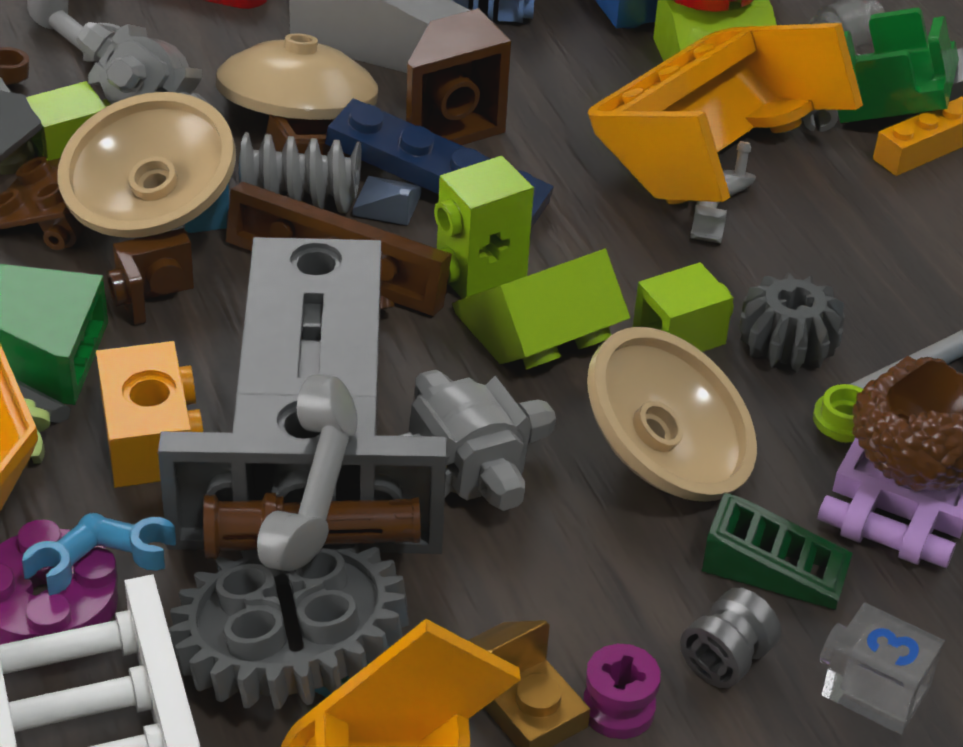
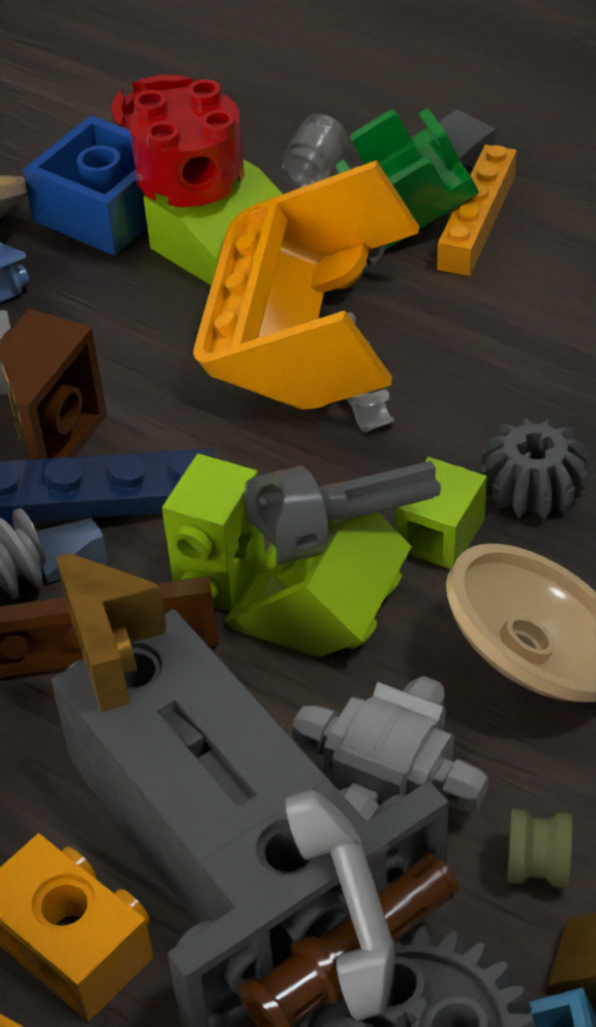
camera: 30 degrees left, 5 degrees up
(311, 210) = (108, 615): none -> pearl gold slope
(522, 560) = (540, 848): none -> olive wheel
(533, 227) = (302, 512): none -> dark grey piece

